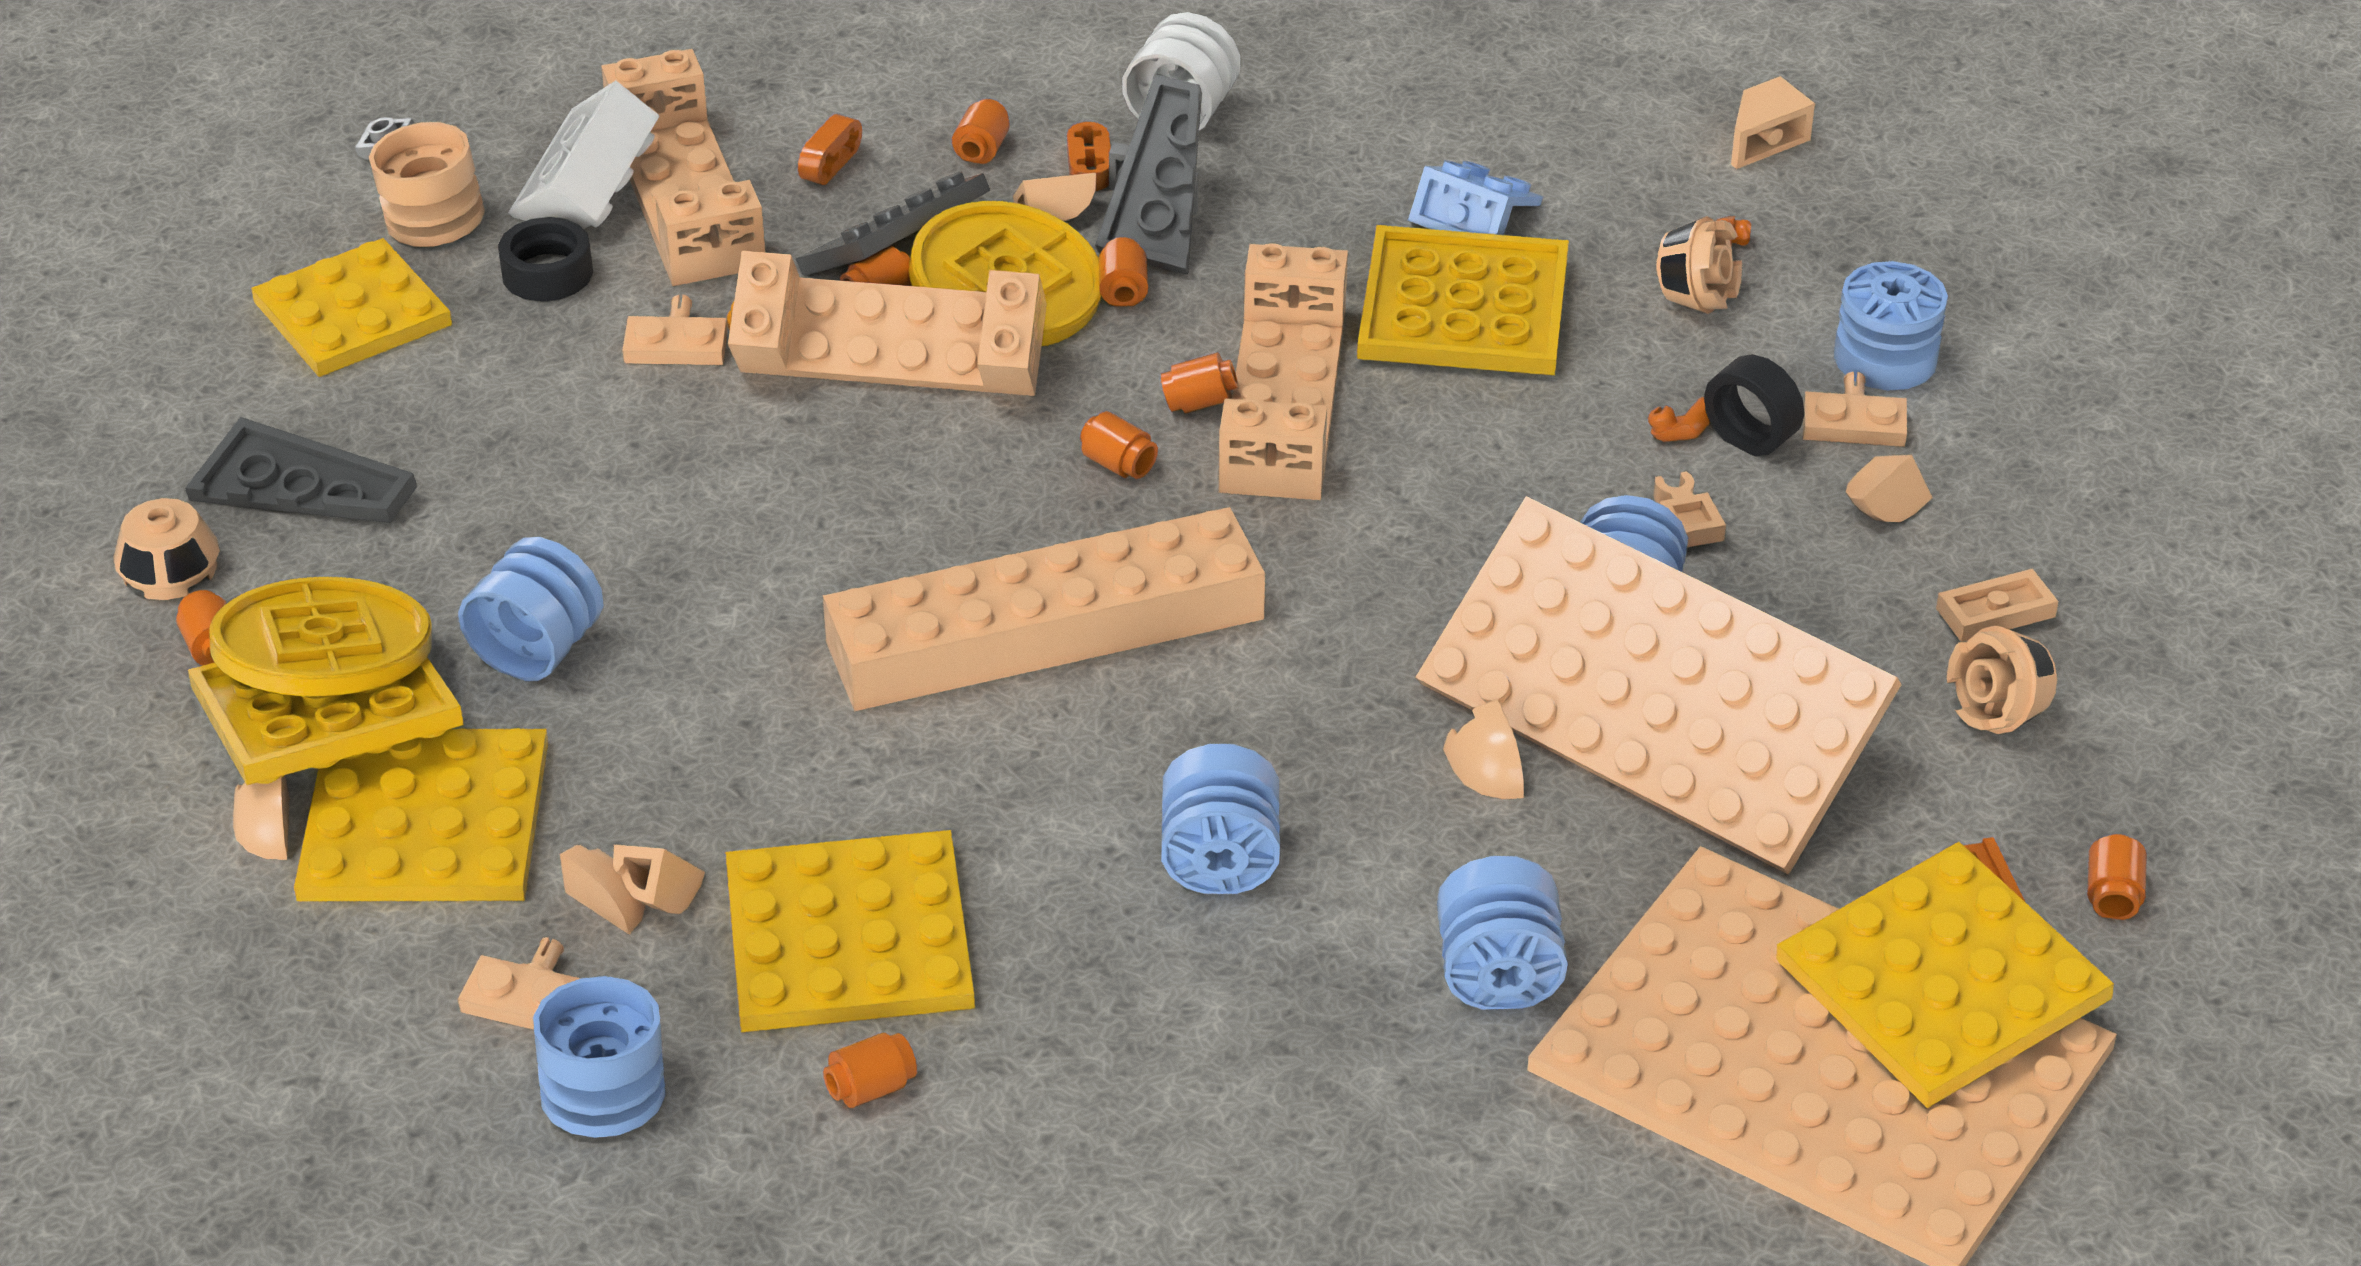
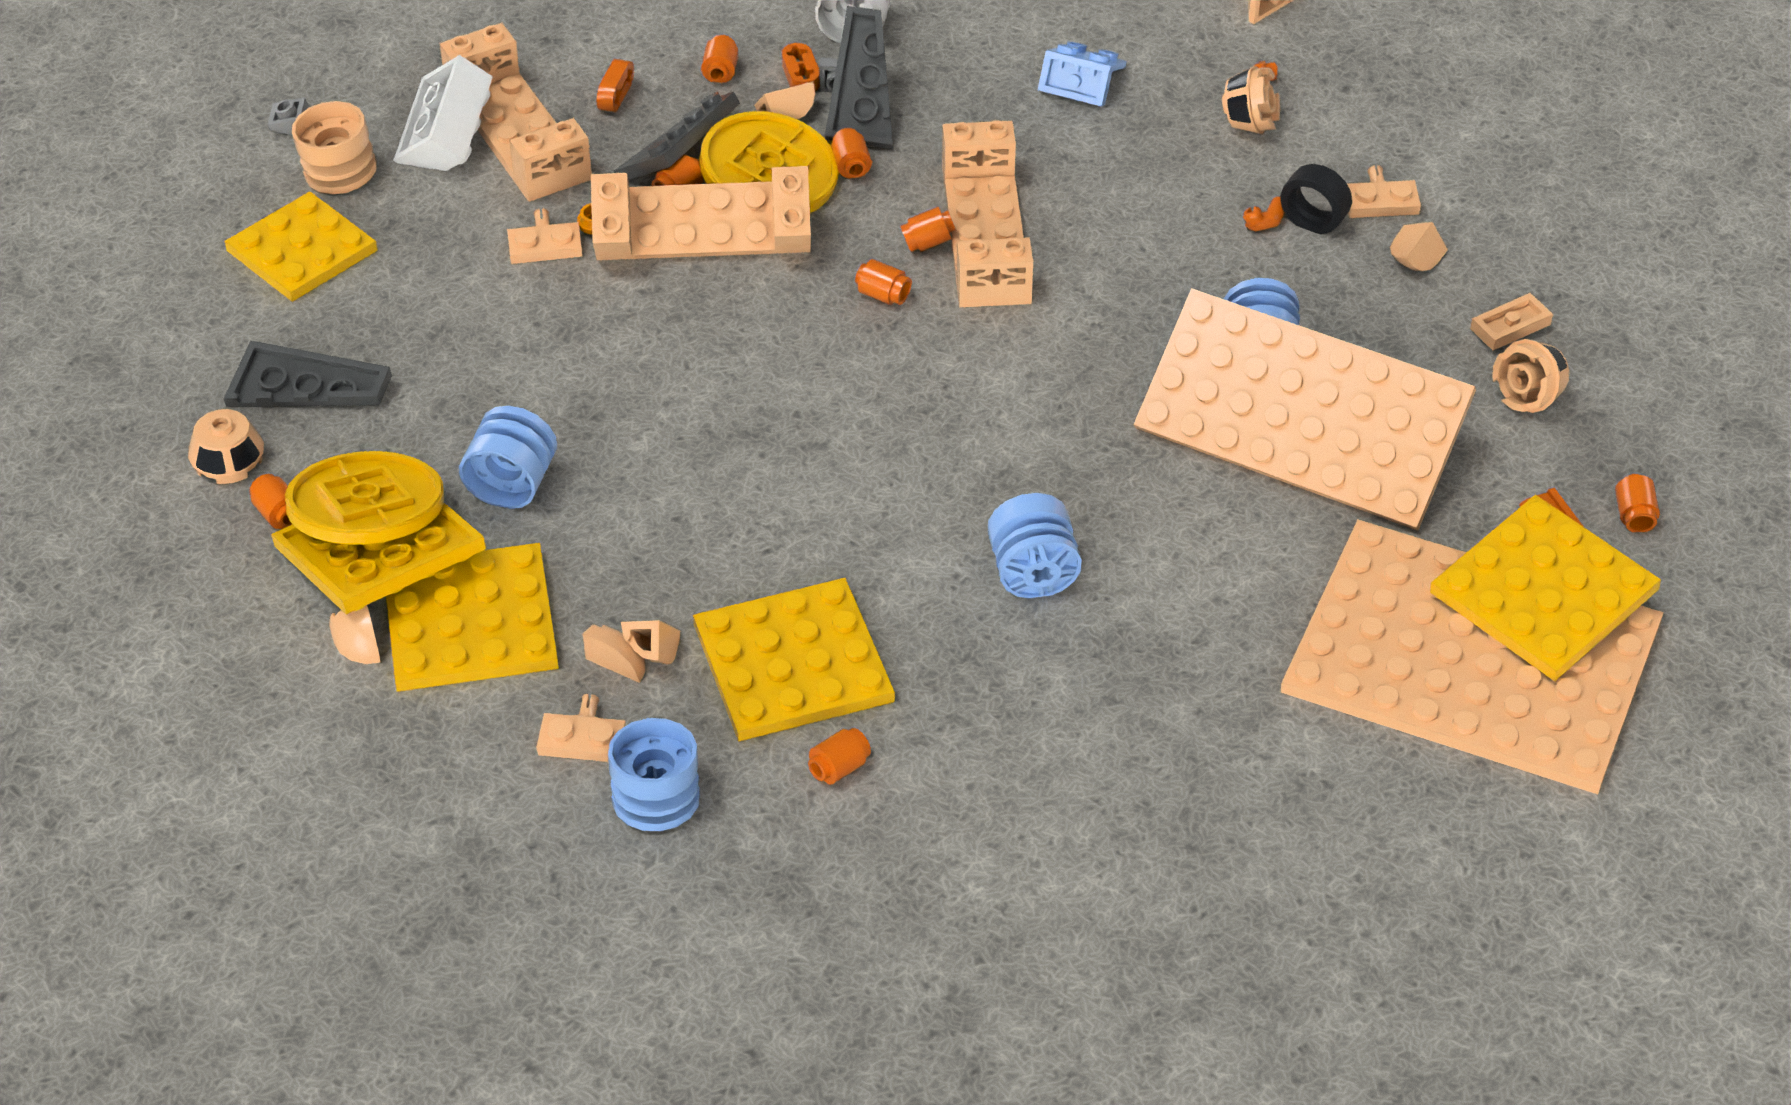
camera: 10 degrees left, 5 degrees up
(546, 280) = (433, 210): black tyre -> none
(1043, 608) = (864, 409): light nougat brick -> none
(1464, 300) = (1093, 145): yellow plate -> none
(1487, 754) = (1197, 473): light nougat brick -> none
(1501, 933) = (1246, 600): light blue wheel -> none
(1696, 512) = (1293, 277): light nougat plate -> none
(1890, 325) = (1393, 128): light blue wheel -> none

